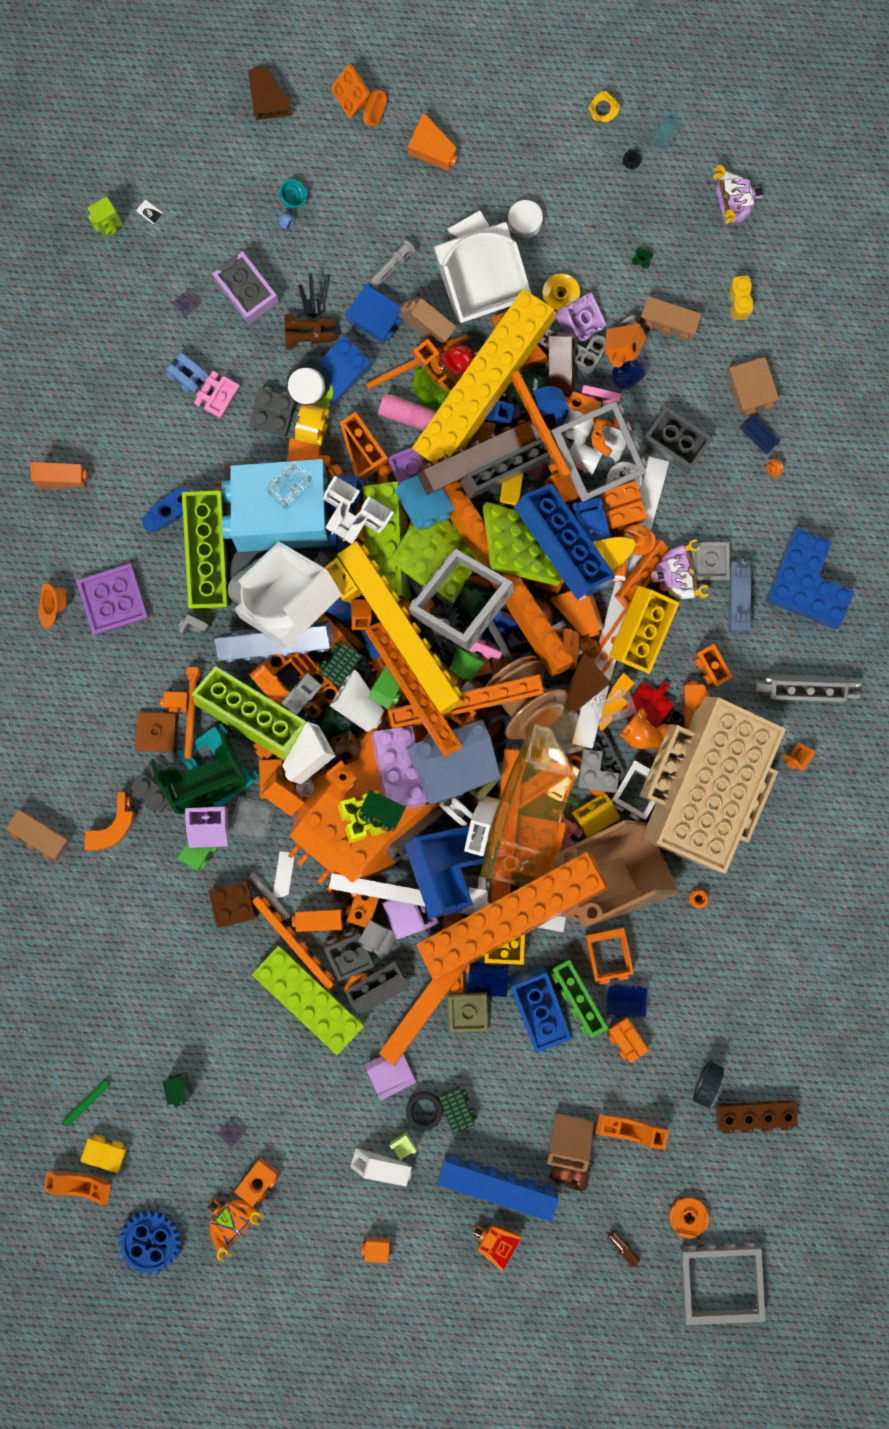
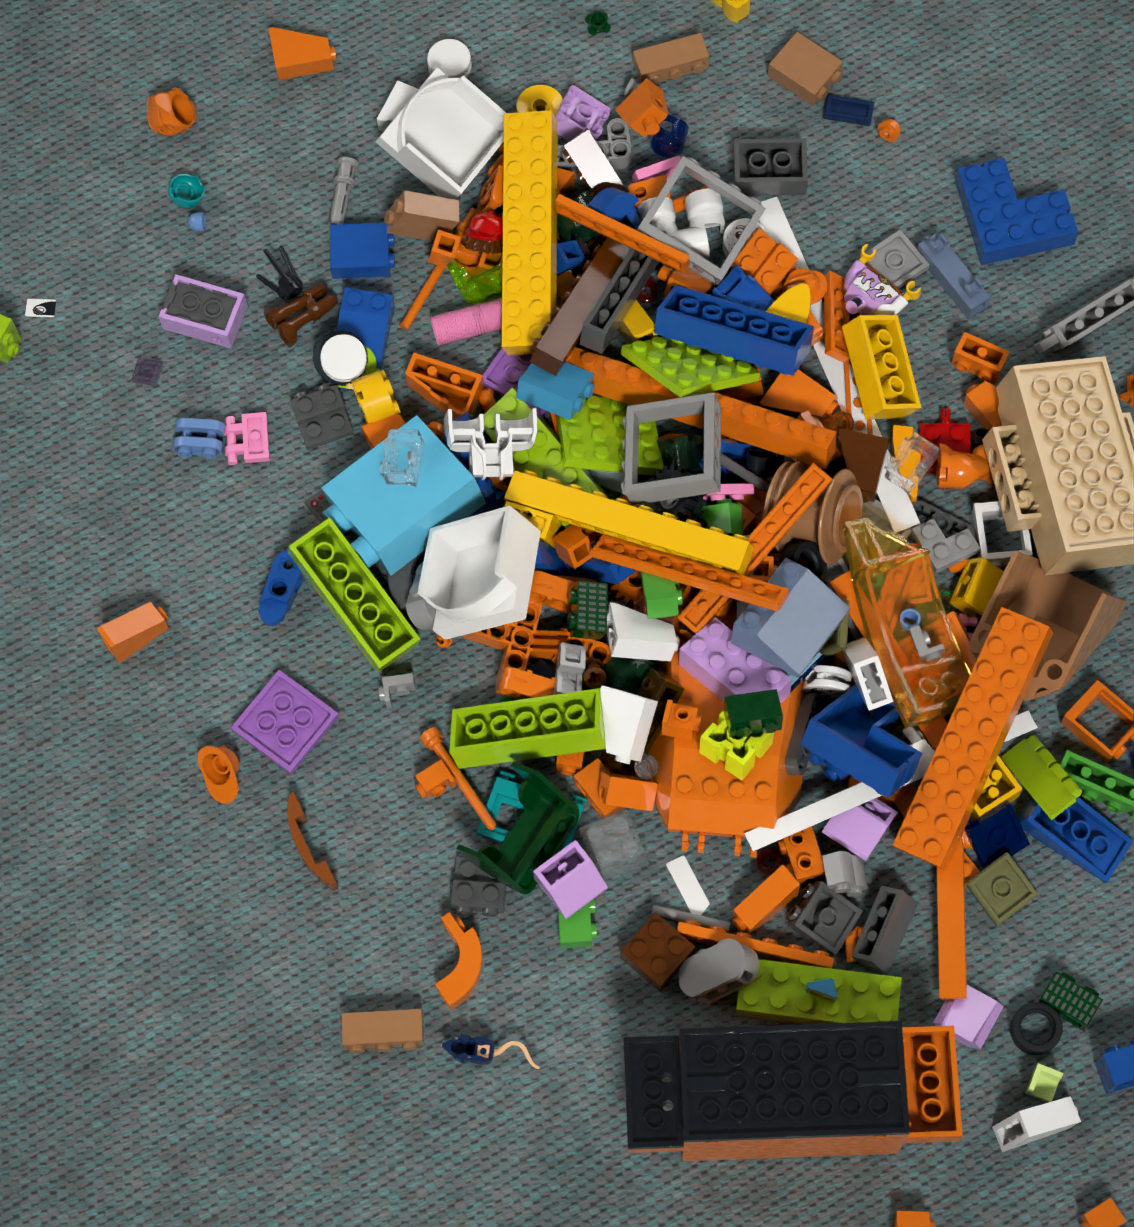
camera: 30 degrees left, 15 degrees down
(77, 663) = (320, 870): none -> dark orange slope
(85, 888) = (479, 1049): none -> dark blue animal
(155, 732) = (434, 830): dark orange plate -> none
(177, 1089) = (747, 1196): dark green brick -> none
(231, 1133) = (842, 1209): clear purple tile -> none
(238, 1055) = (792, 1090): none -> black piece
(254, 643) = (492, 644): brick -> none
(258, 944) = (718, 971): none -> light grey brick
(267, 96) = (89, 115): reddish brown slope -> none
(308, 1002) = (823, 989): none -> dark azure slope
(319, 131) = (170, 112): none -> orange piece
(350, 91) = (176, 55): orange bracket -> none
(375, 108) = (212, 56): orange tile -> none
(480, 336) = (491, 192): none -> orange plate
(529, 830) = (921, 641): none -> light grey bracket
(536, 809) = (911, 616): none -> medium blue hinge
(541, 965) = (1042, 776): none -> lime windscreen
(598, 442) = (696, 208): orange arm -> none

